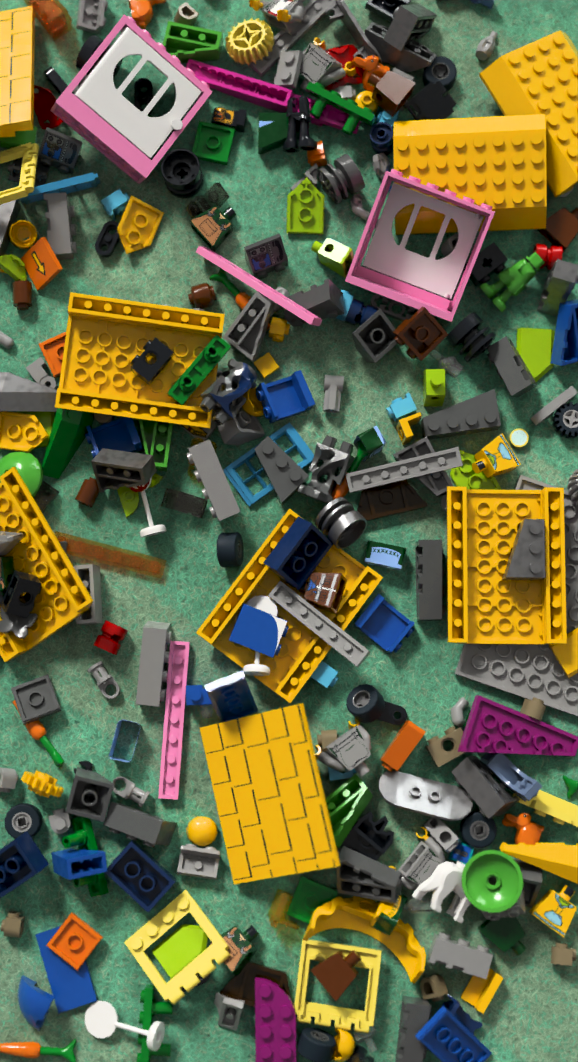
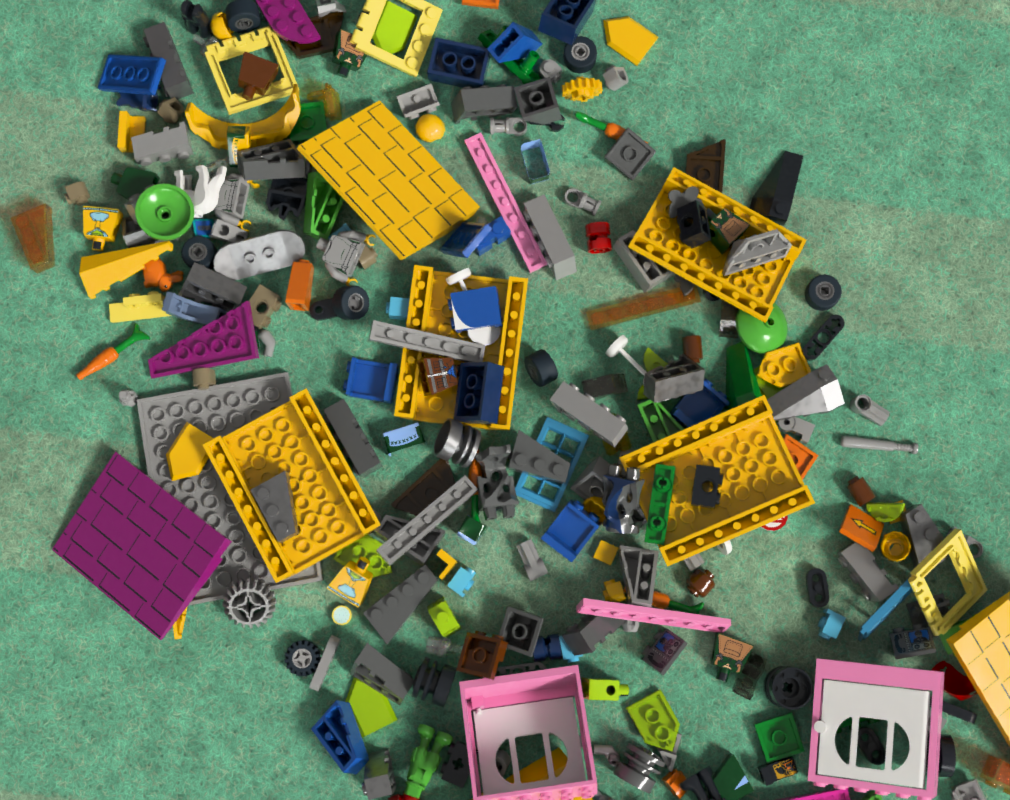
camera: 155 degrees right, 0 degrees up
(138, 225) = (798, 616): yellow tile -> none

